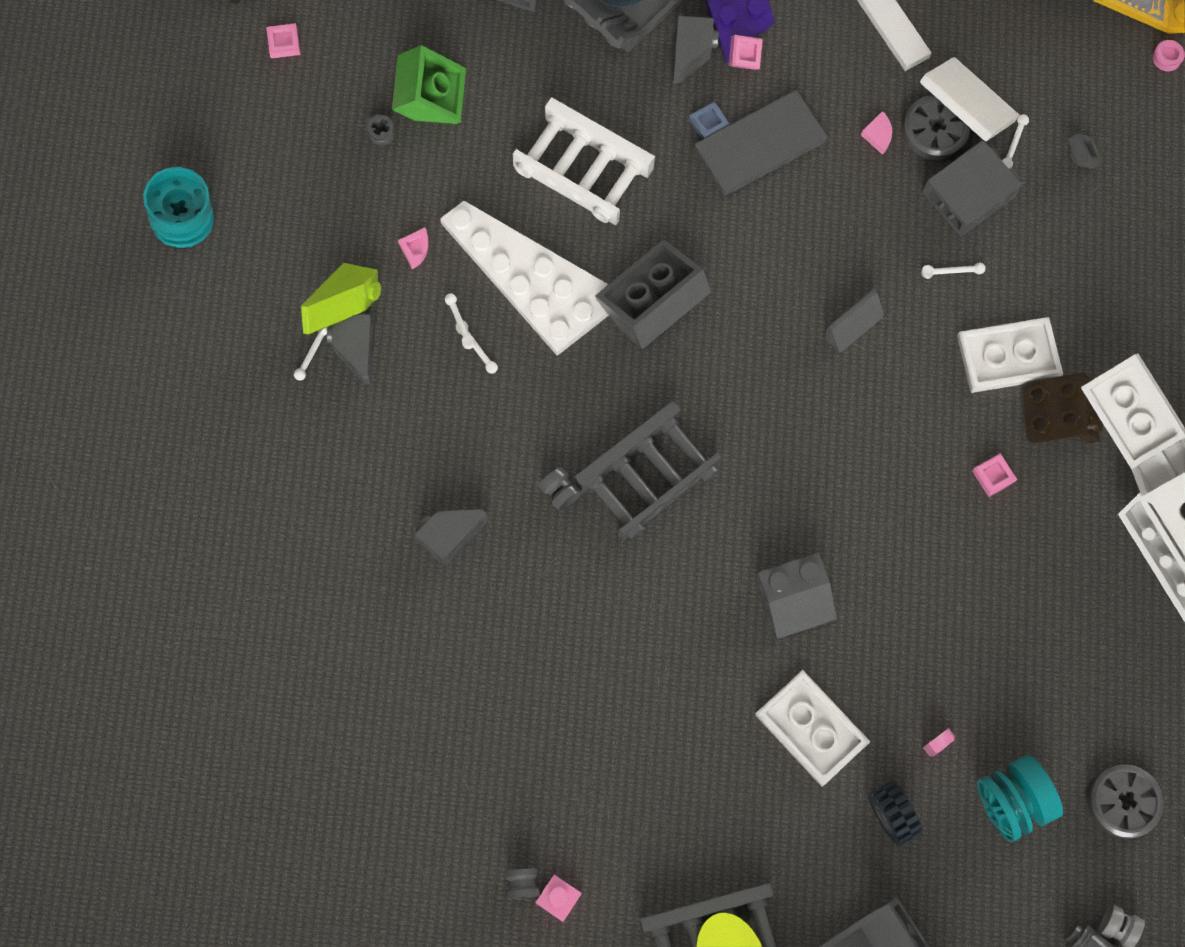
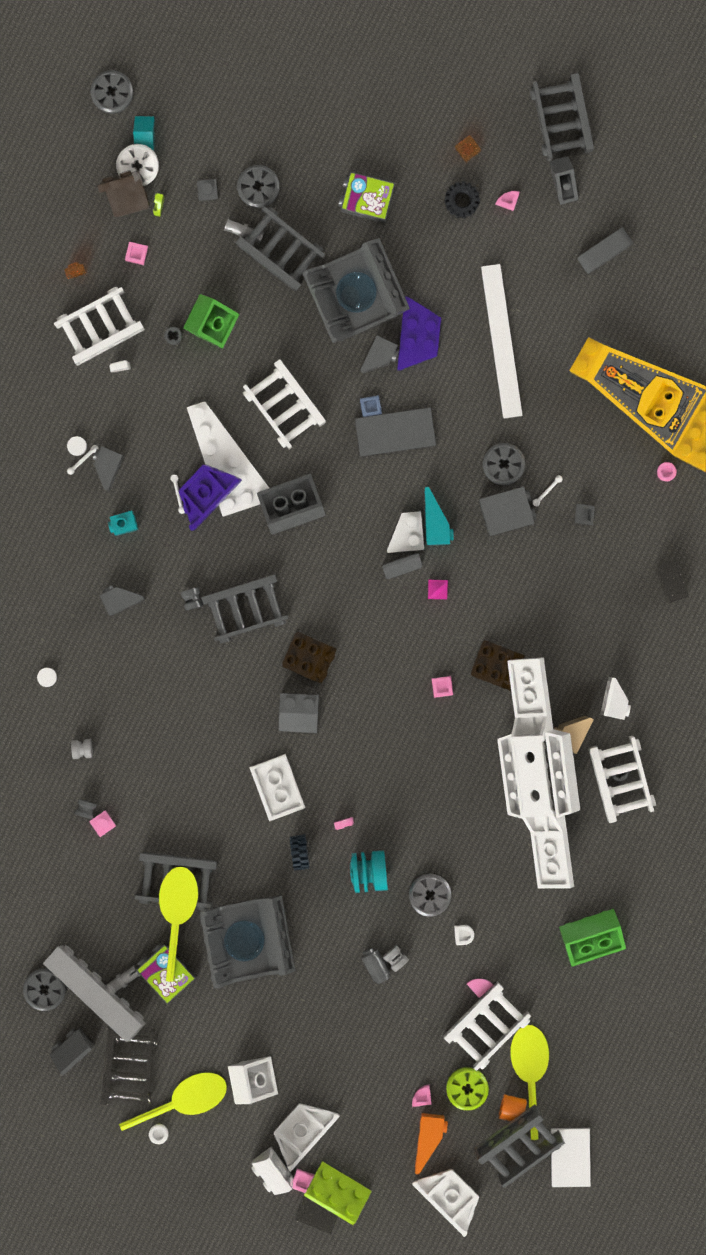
camera: 25 degrees right, 15 degrees up
(172, 194) = (35, 333): teal wheel -> none
(201, 91) = (75, 270): none -> clear orange plate
(277, 180) = (115, 336): none -> white fence
(293, 336) = (77, 446): none -> white tile
(317, 197) = (119, 366): none -> white tile
(341, 296) = (109, 439): lime slope -> none
(379, 698) = (47, 677): none -> white tile
(410, 417) = (123, 523): none -> teal brick
(415, 247) = (166, 418): bright pink tile -> none
(467, 341) = (173, 490): white hinge -> none
(477, 789) = (80, 749): none -> light grey wheel
(518, 324) = (205, 492): none -> dark purple wing
(745, 52) = (409, 371): bright pink tile -> none
(776, 506) = (309, 657): none -> dark brown bracket
(842, 275) = (408, 534): none -> white wing
(877, 240) = (437, 526): none -> teal slope
(879, 133) = (468, 453): bright pink tile -> none
(922, 337) = (437, 589): none -> dark pink tile
(928, 271) = (459, 550): white hinge -> none
(969, 98) = (530, 455): white tile -> none
(1009, 354) = (483, 619): white tile -> none

